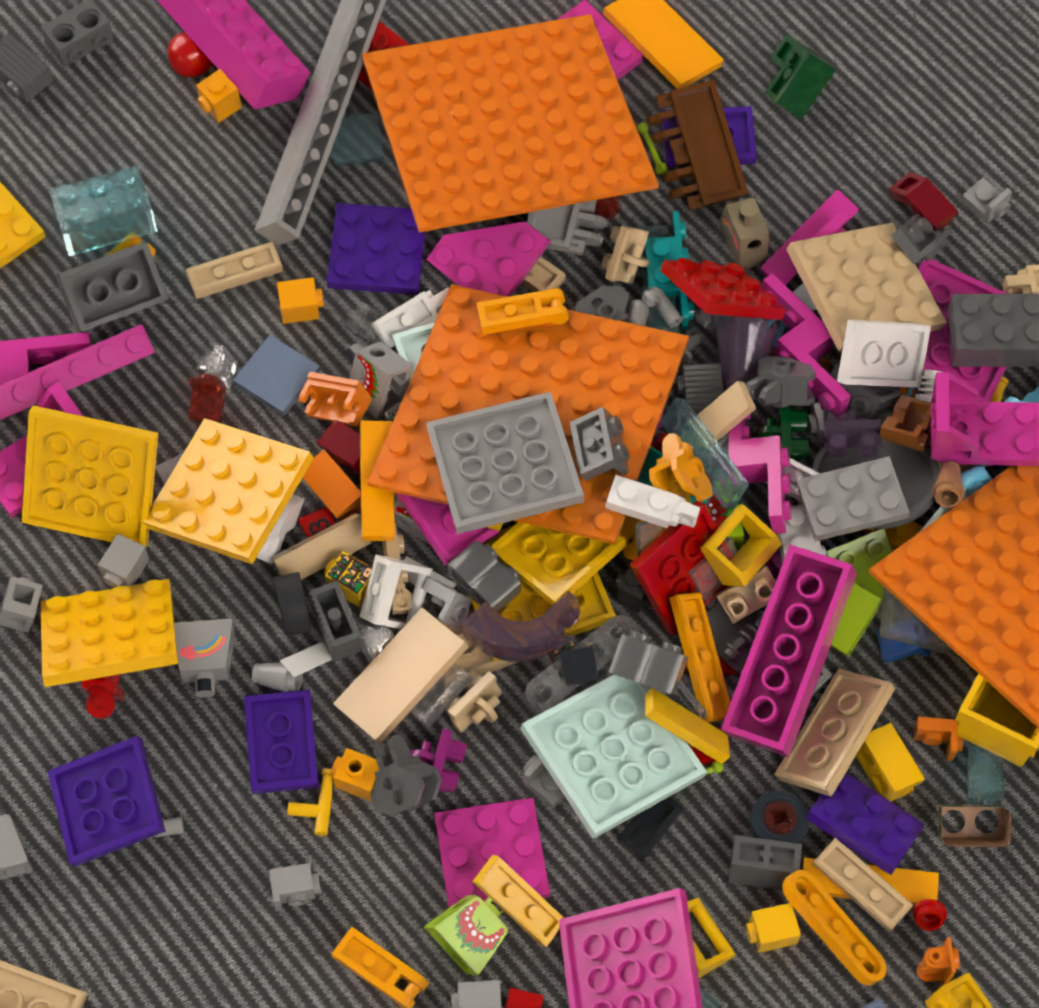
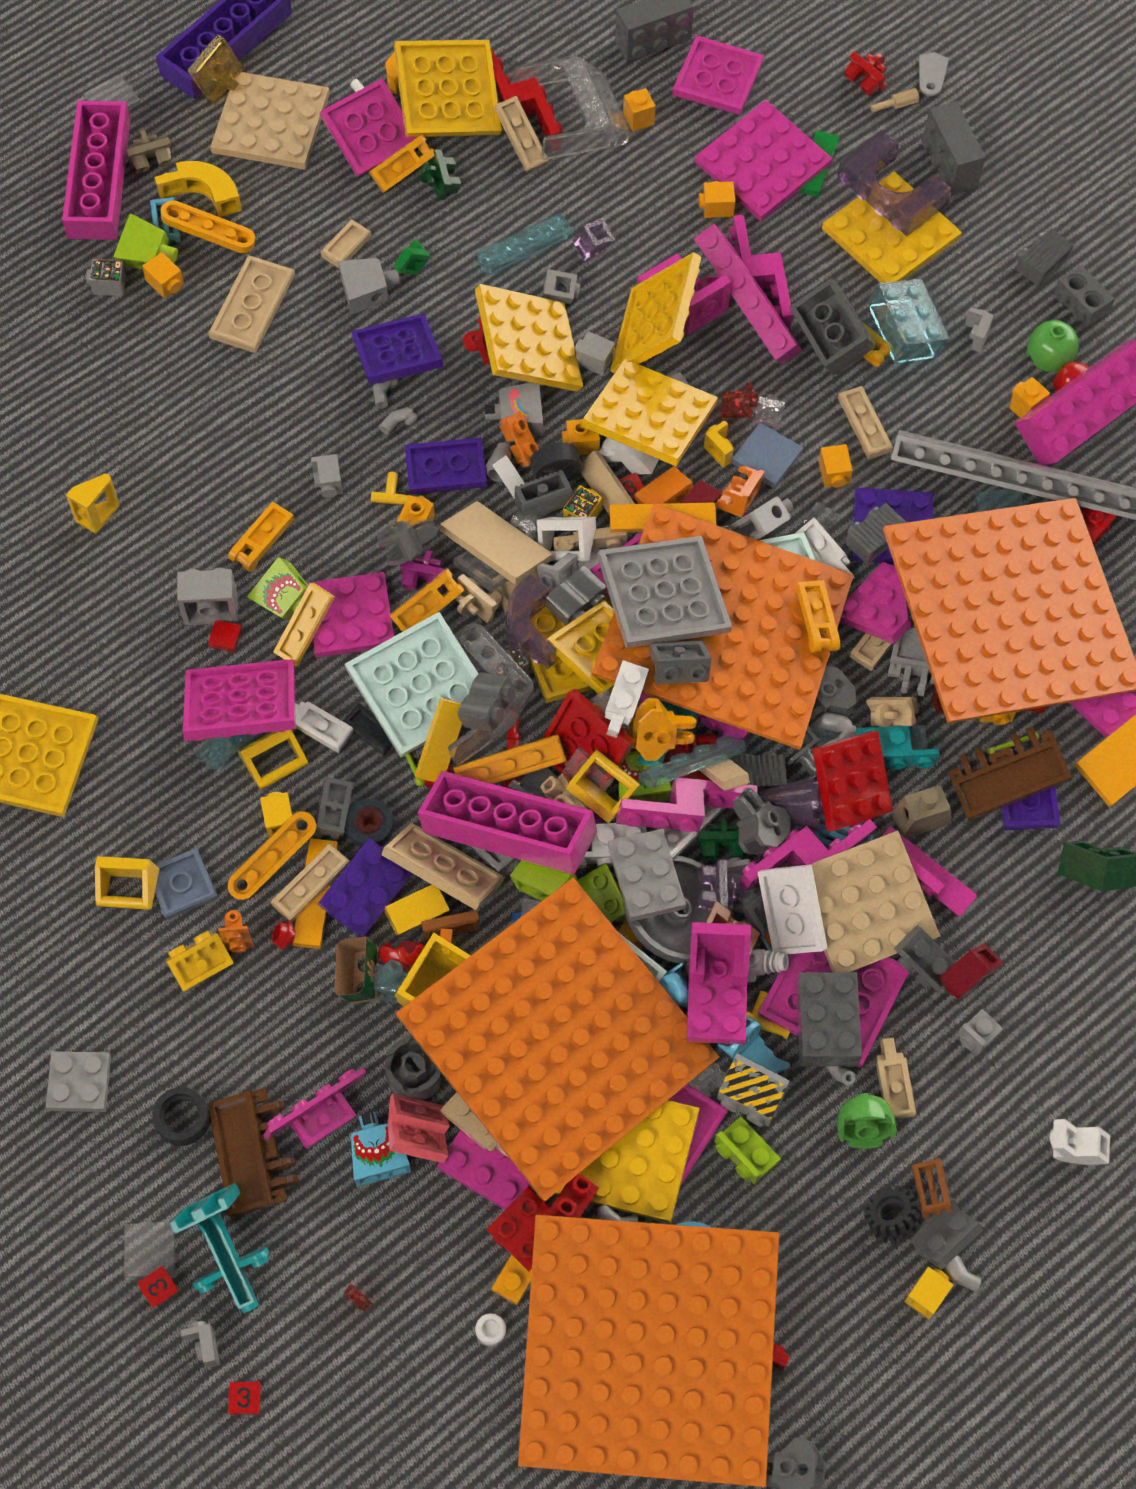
camera: 90 degrees right, 0 degrees up
(116, 137) = (981, 325): none -> light grey bracket
(141, 70) = (1053, 345): none -> bright green cylinder
(202, 803) = (404, 414): none -> light grey arm
(246, 581) = (582, 438): none -> light orange brick
(265, 644) = (516, 429): none -> orange hinge
(267, 424) = (718, 445): none -> yellow bracket
(400, 256) = (868, 537): none -> dark grey brick
(485, 754) = (427, 601): none -> light orange plate
(579, 666) = (490, 656): black tile -> none
(654, 874) = (322, 726): none -> white hinge
(905, 722) = (458, 923): none -> dark orange tile
(946, 775) = (405, 953): none -> red hair
(949, 485) = (661, 957): medium nougat cone -> none

